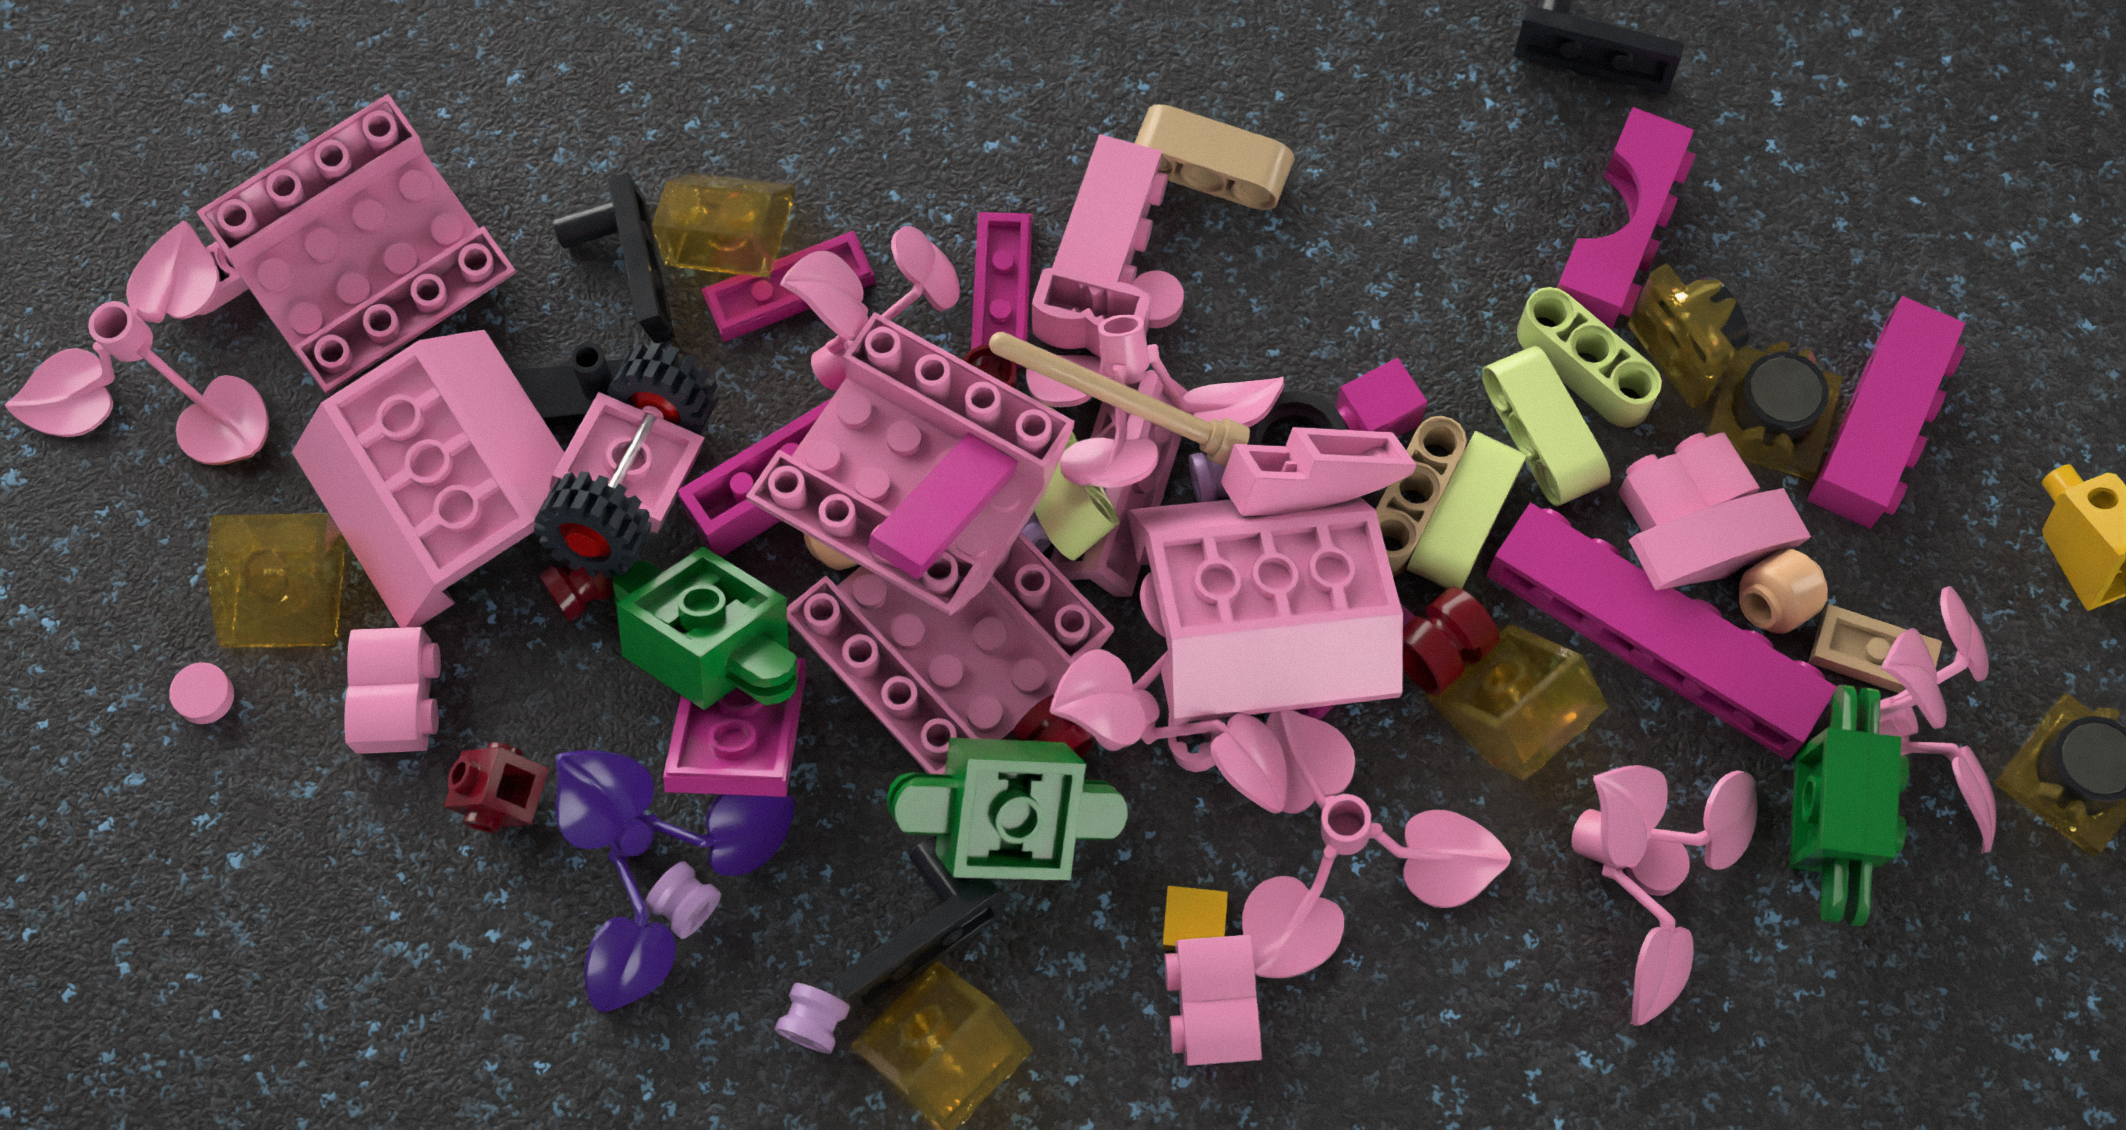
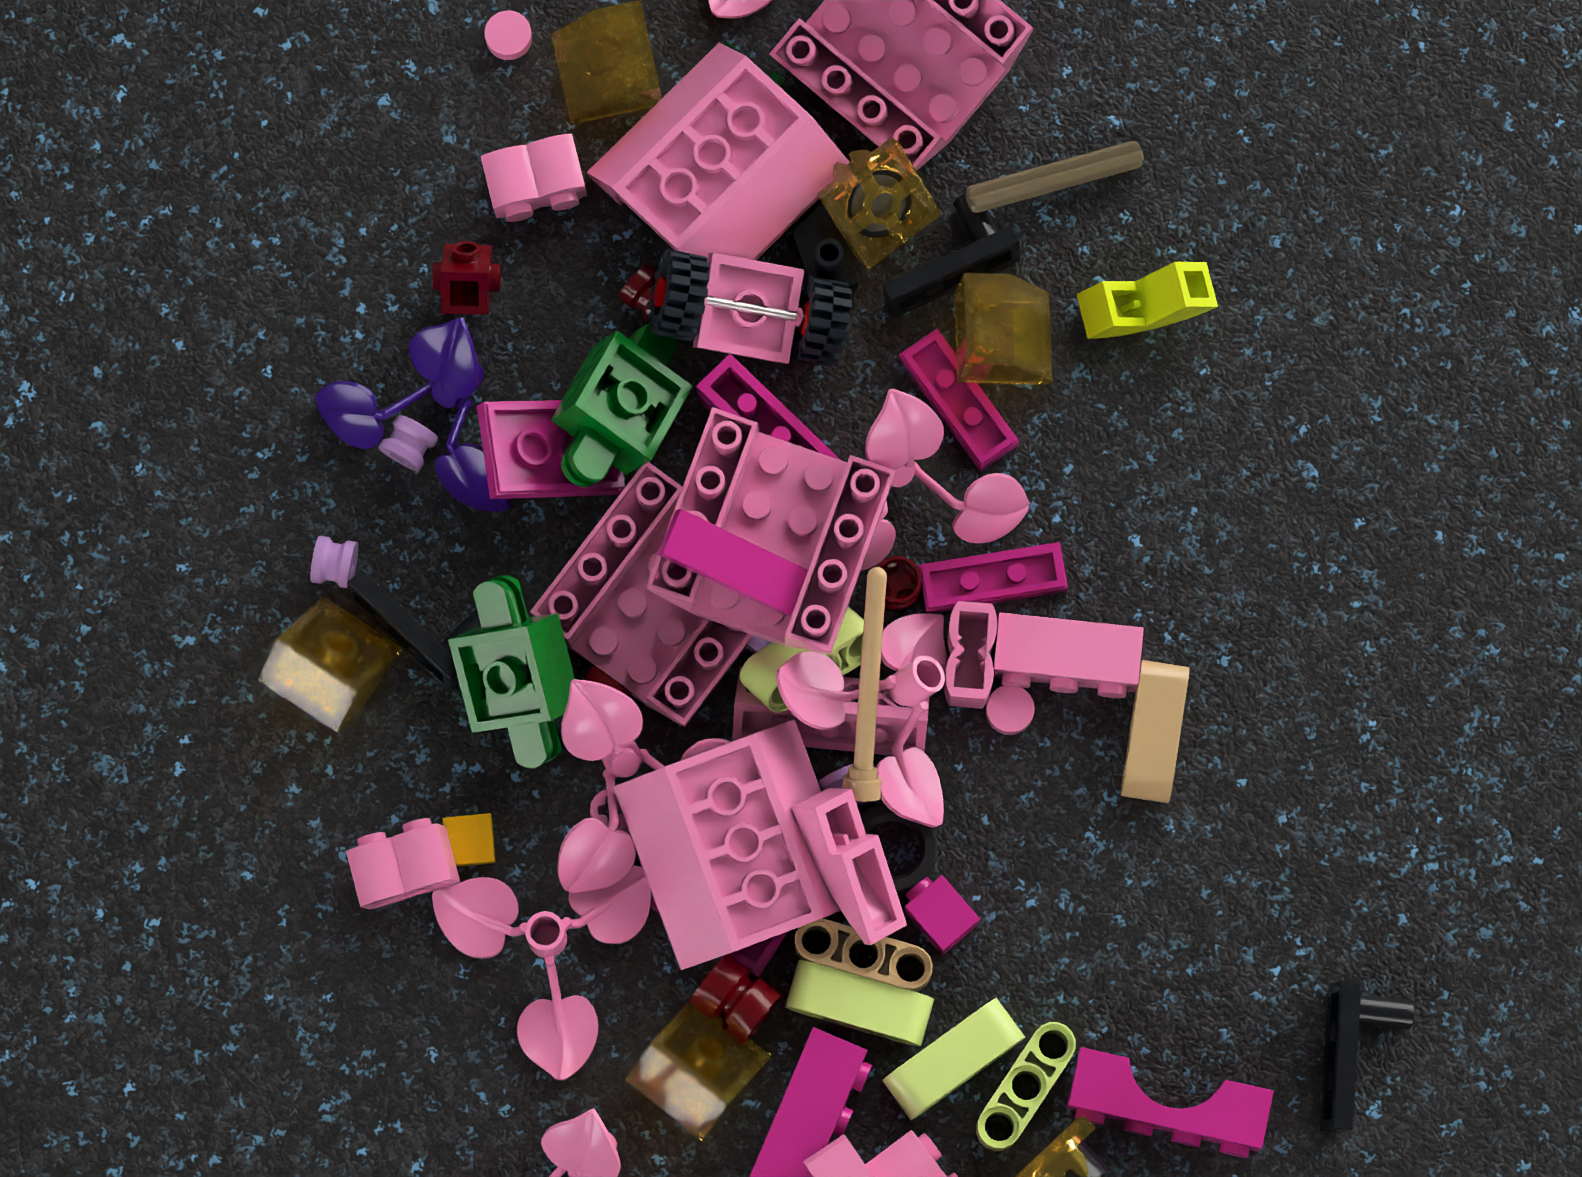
camera: 80 degrees right, 10 degrees up
(539, 308) = (878, 202): none -> clear yellow piece
(562, 135) = (1054, 176): none -> dark tan axle
(729, 72) = (1149, 303): none -> neon yellow brick

